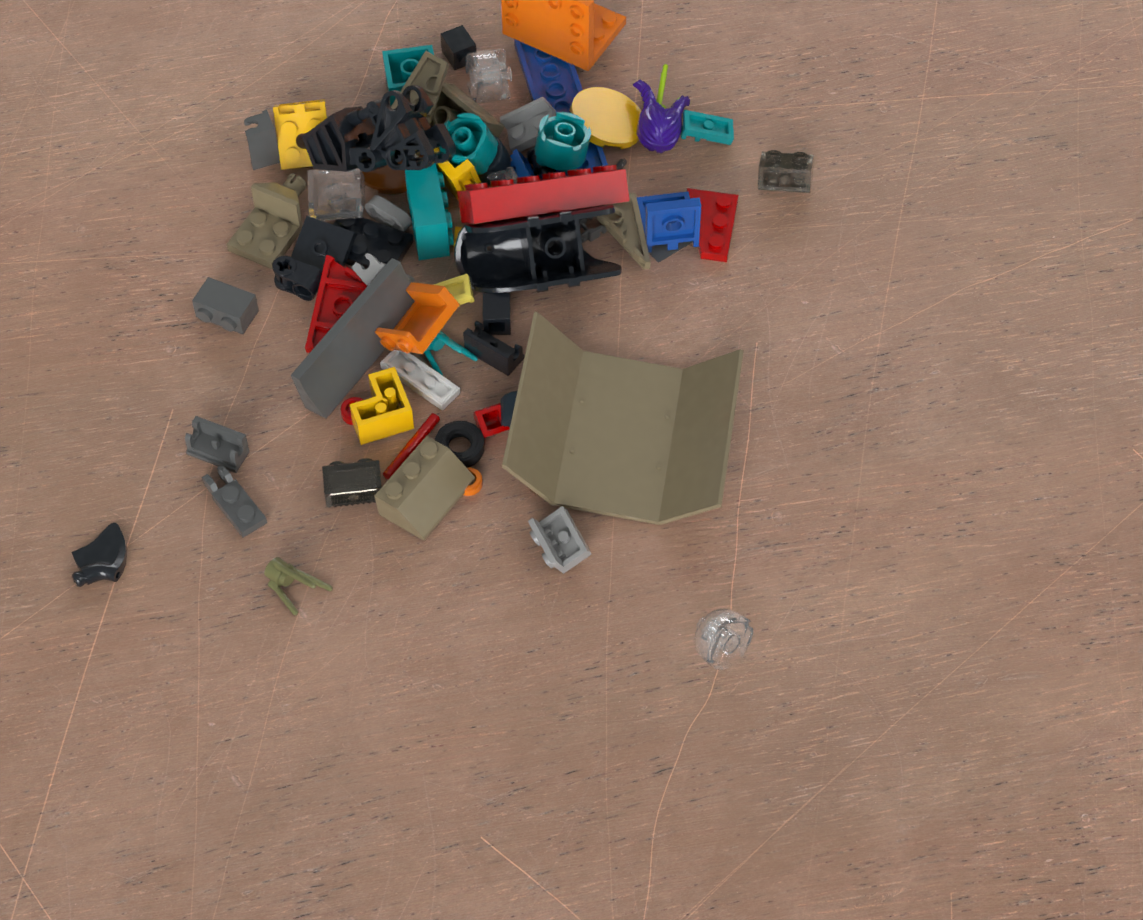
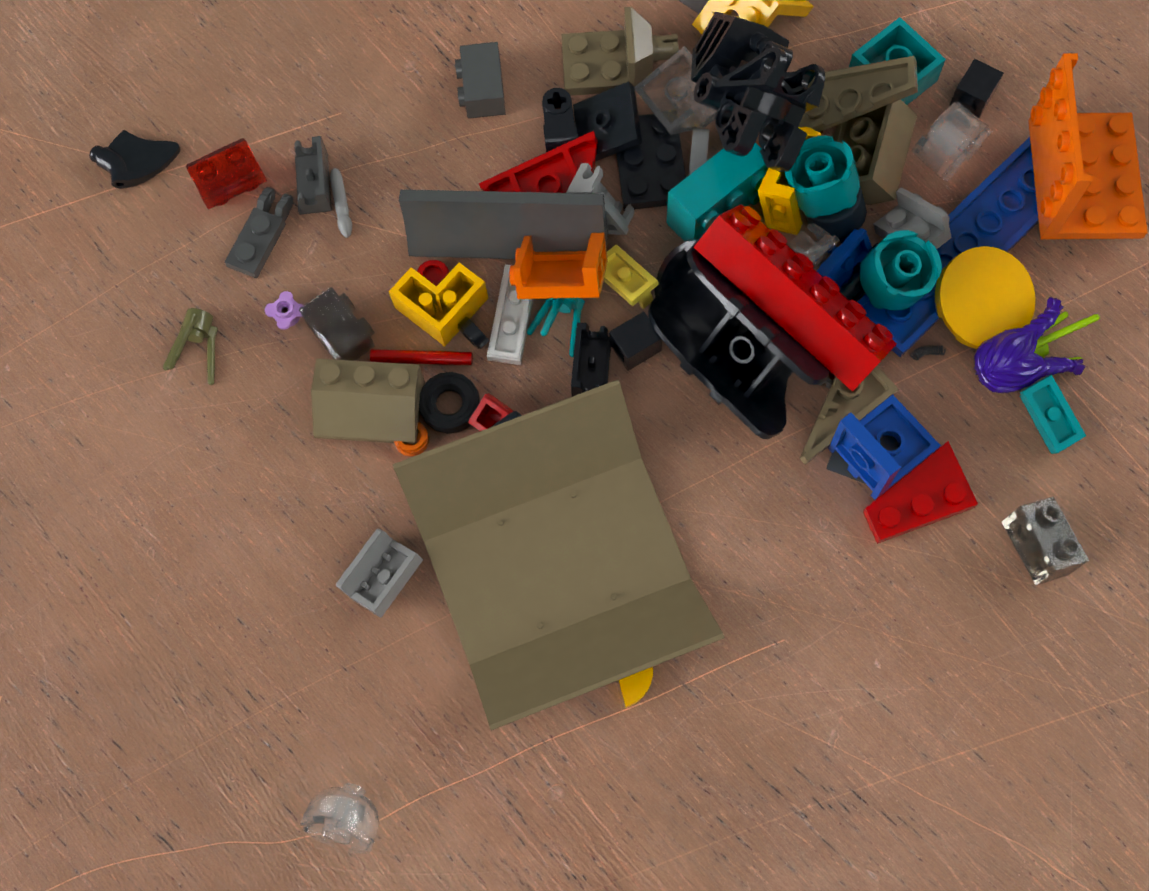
camera: 65 degrees right, 15 degrees up
(171, 497) = (226, 173): none -> clear red bracket
(267, 444) = (341, 206): none -> light grey piece
(314, 518) = (287, 319): none -> lavender plate
(421, 403) = (472, 333): none -> black tile
(739, 435) = (635, 686): none -> yellow tile

